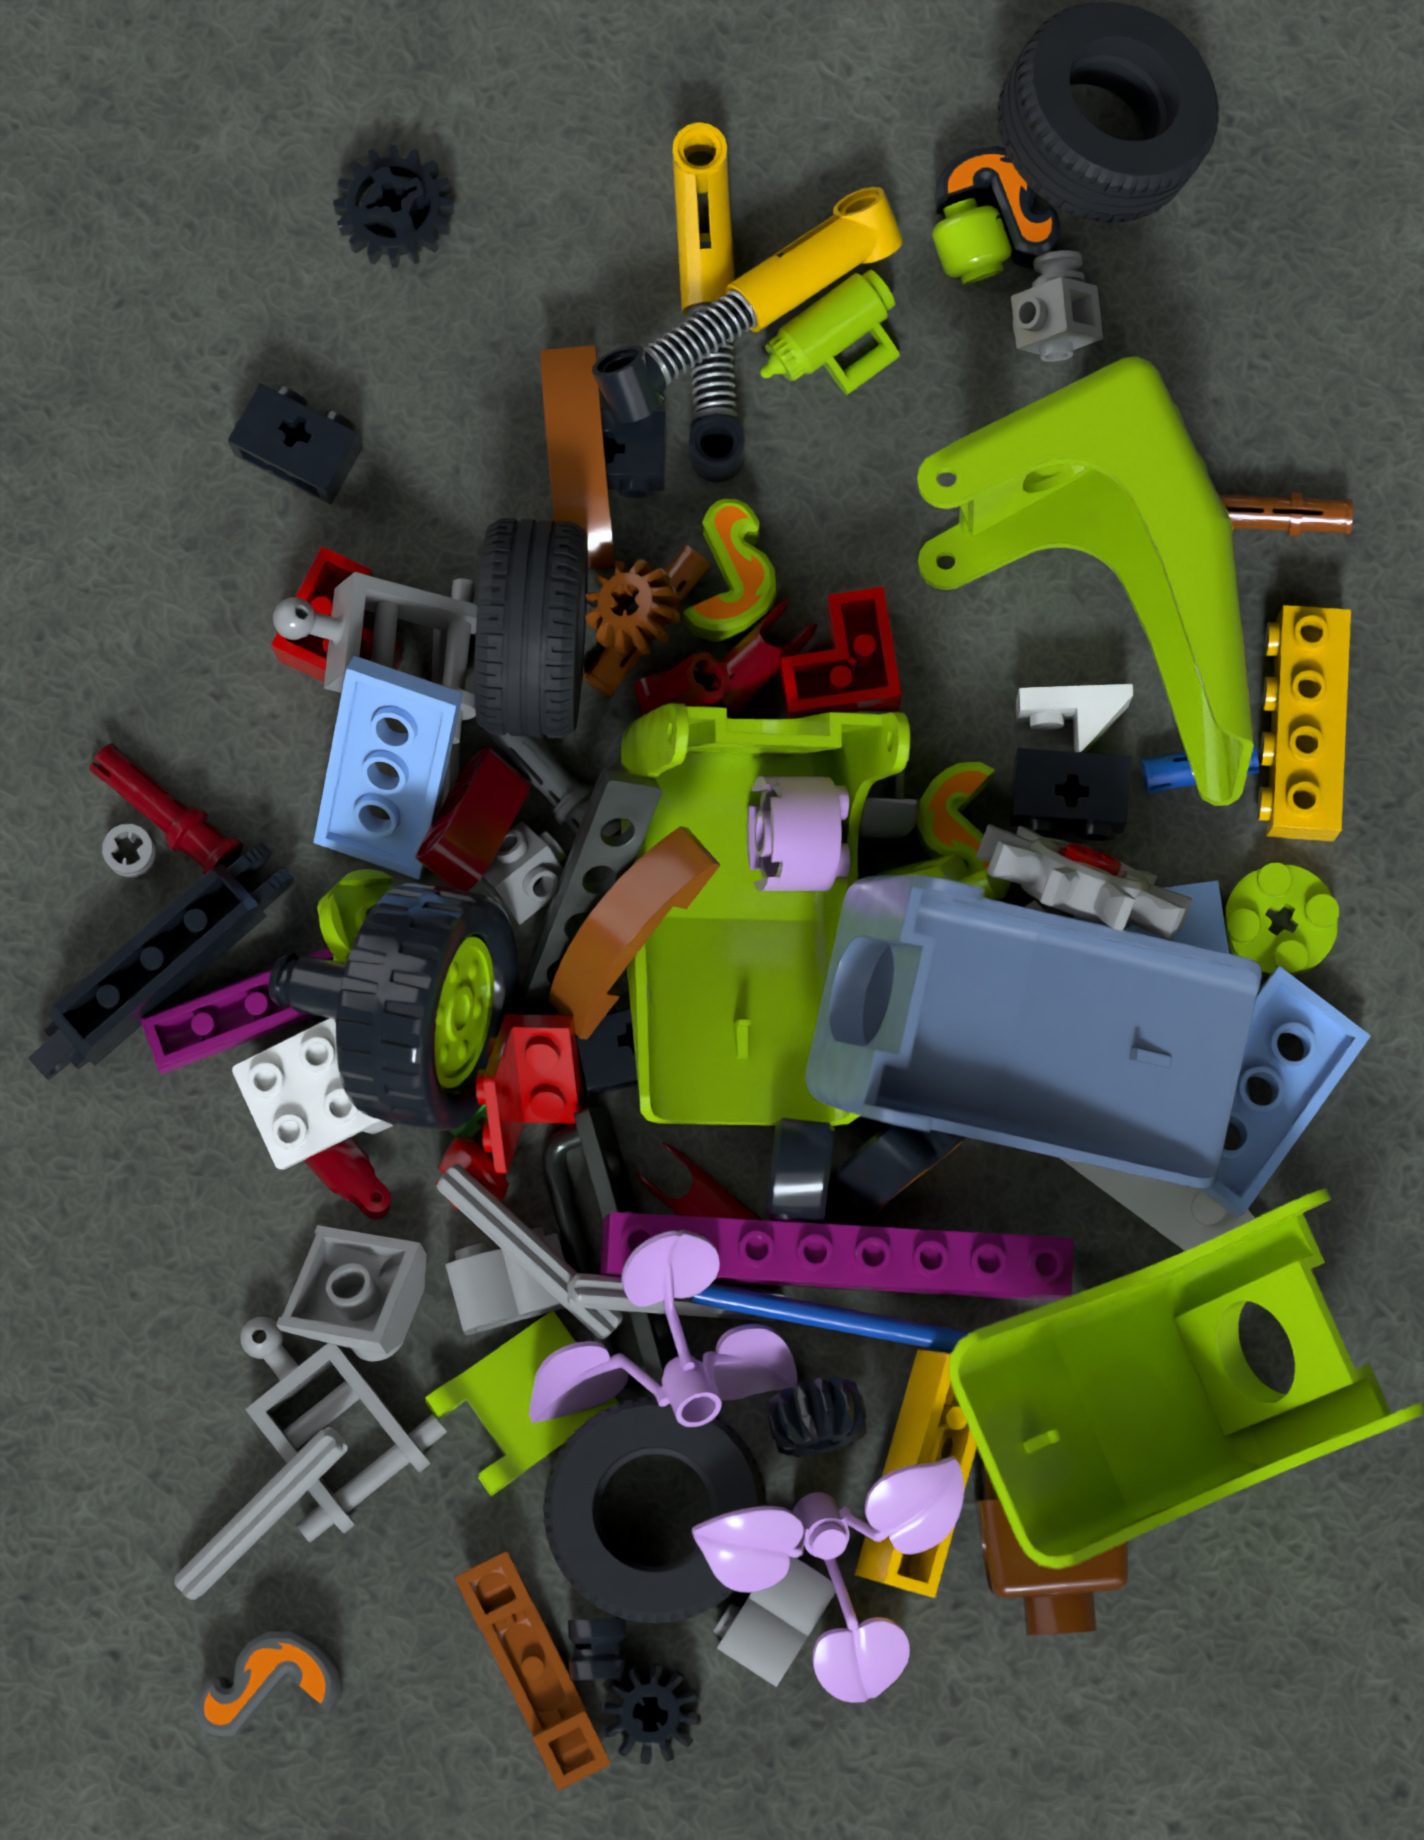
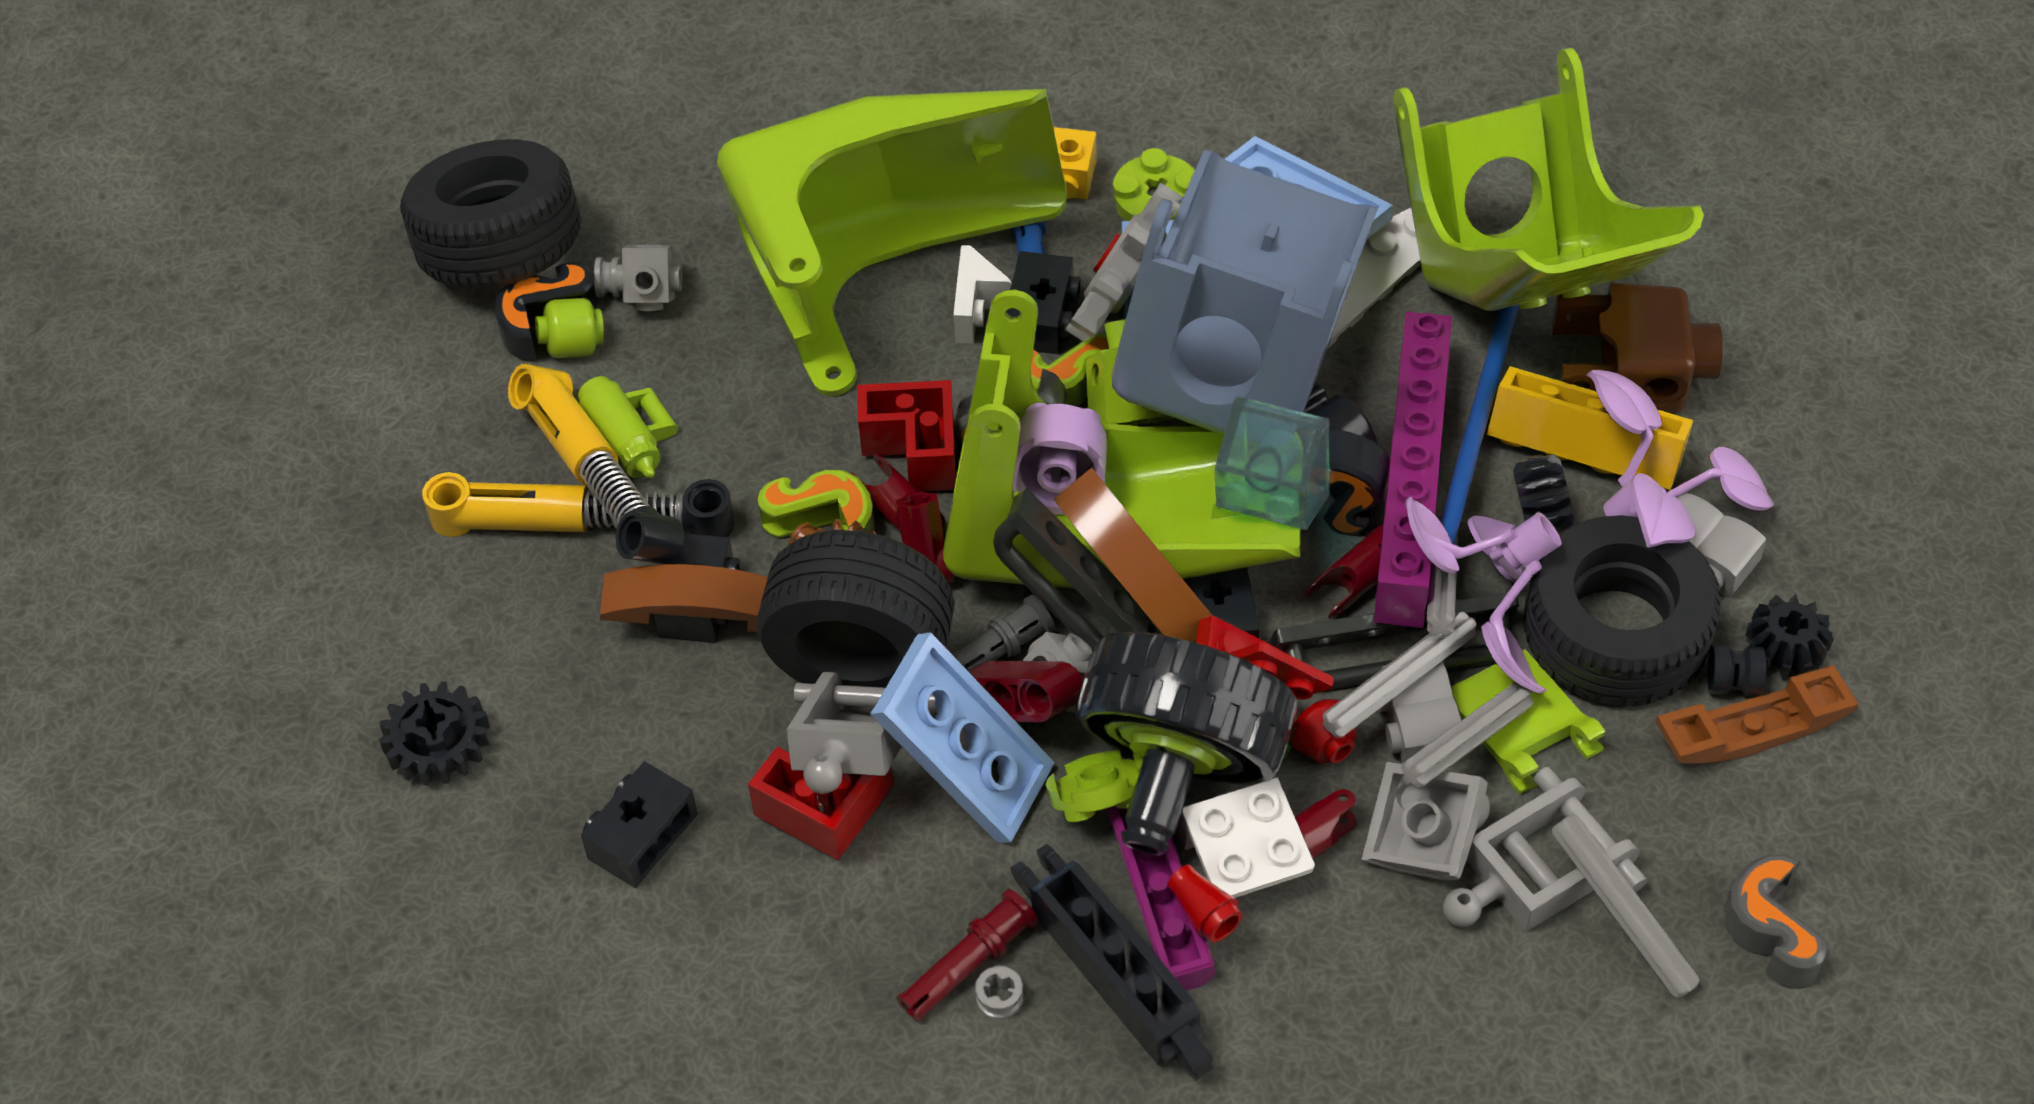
camera: 85 degrees left, 25 degrees down
(216, 1051) = (1206, 905): none -> red cone
(448, 1327) = (1466, 735): none -> light grey axle
(759, 1078) = (1273, 463): none -> clear light blue slope

